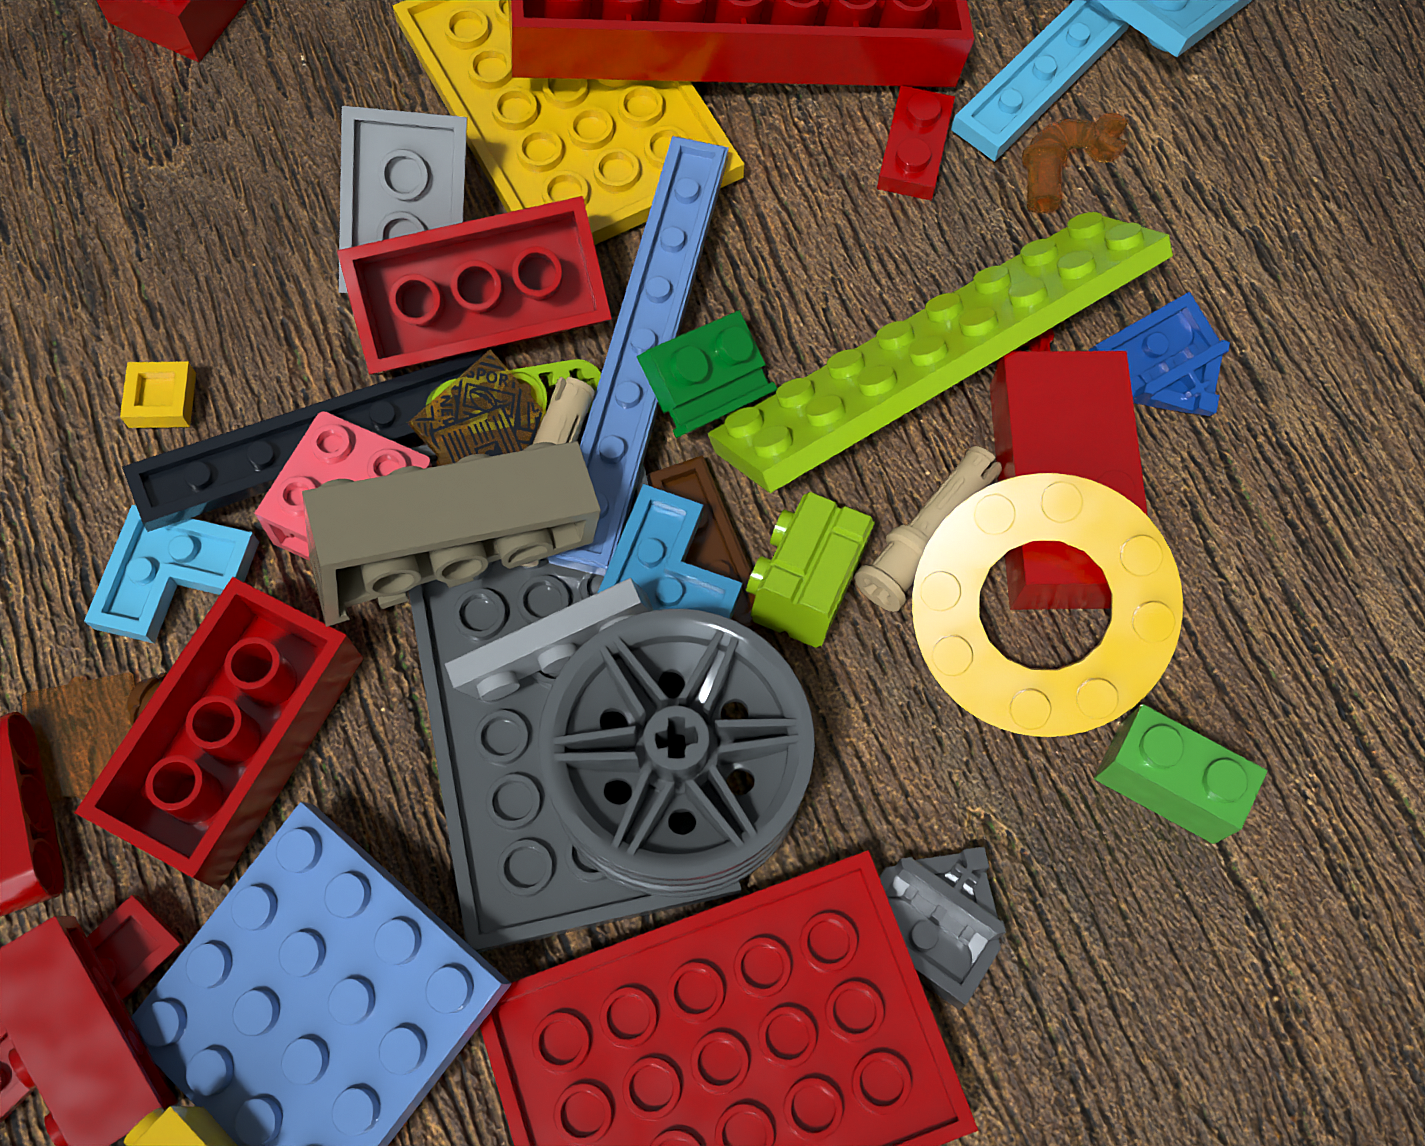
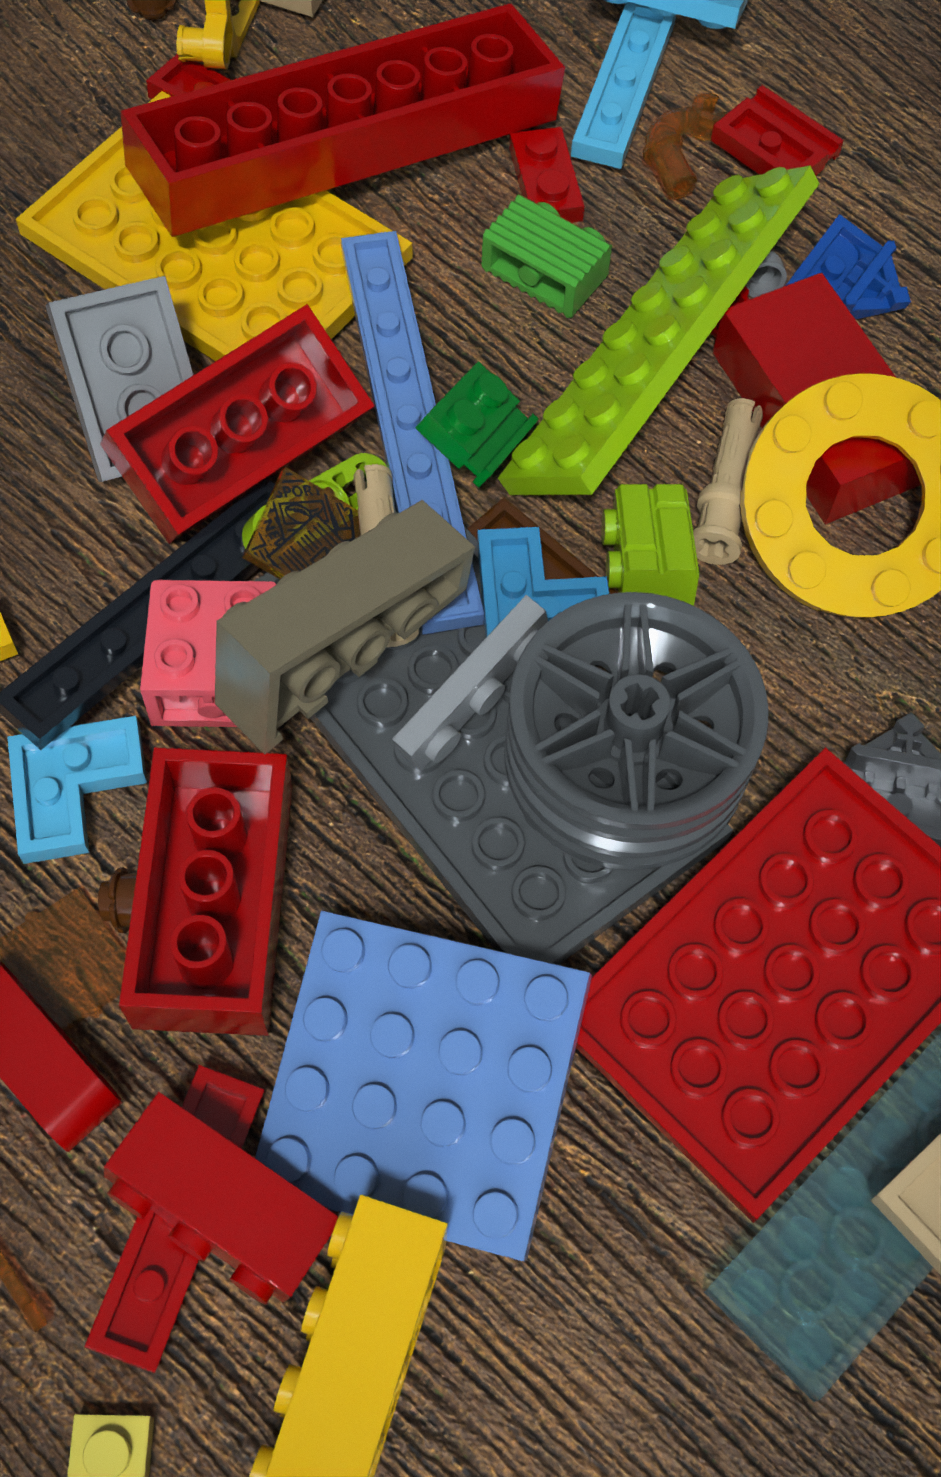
camera: 25 degrees left, 5 degrees down
(869, 223) = (546, 255): none -> bright green brick
(1084, 330) = (768, 276): none -> light grey hinge
(1167, 186) = (774, 134): none -> red plate

